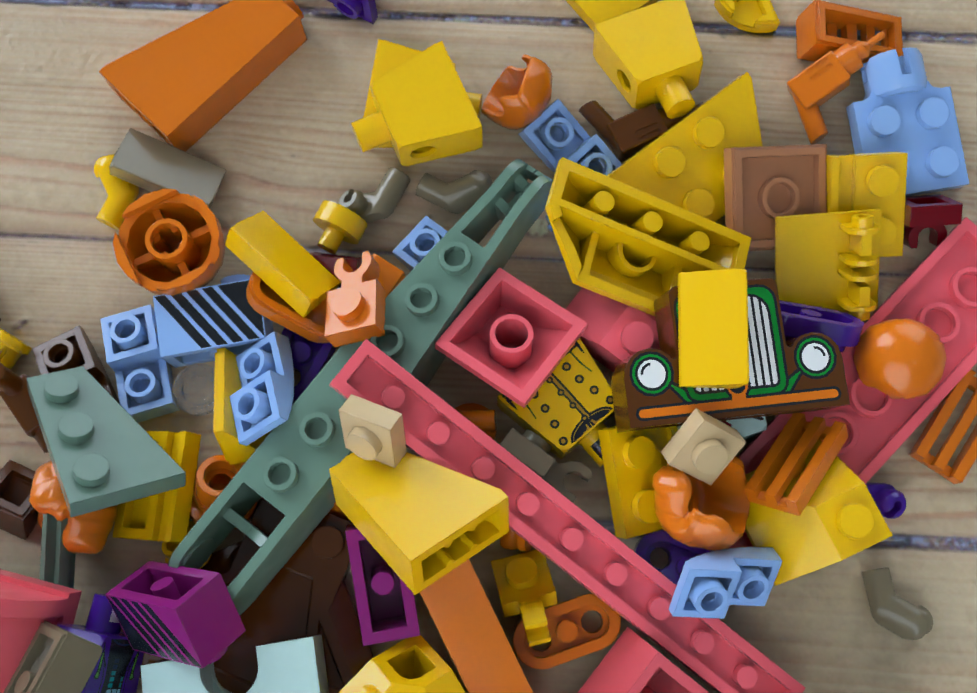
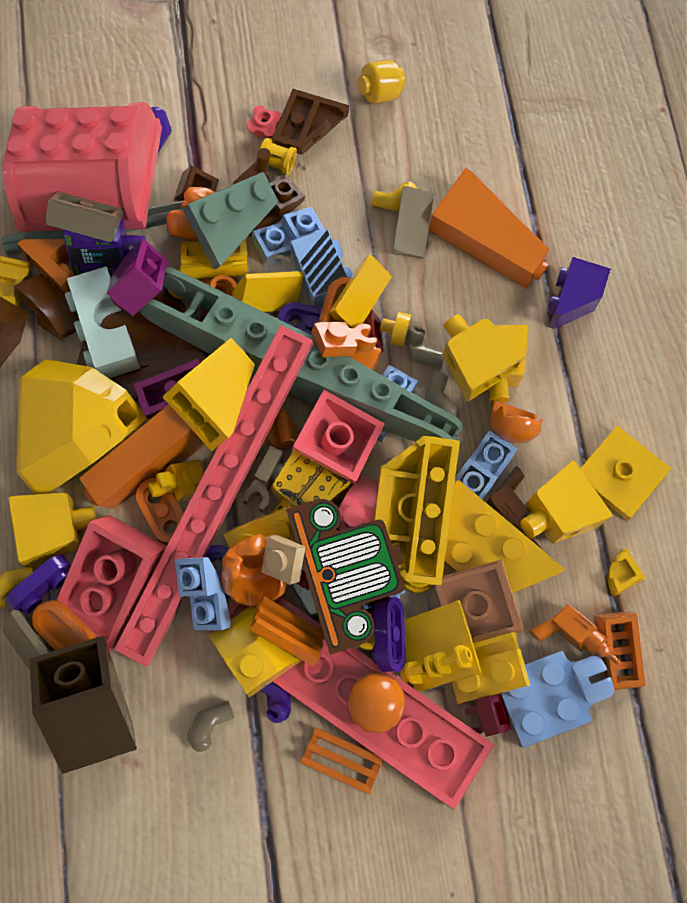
camera: 75 degrees right, 5 degrees down
(169, 242) = (362, 230): orange cylinder -> none
(266, 388) = (287, 302): light blue slope -> none
(373, 431) = (255, 355): tan plate -> none
(713, 329) = (358, 547): yellow slope -> none

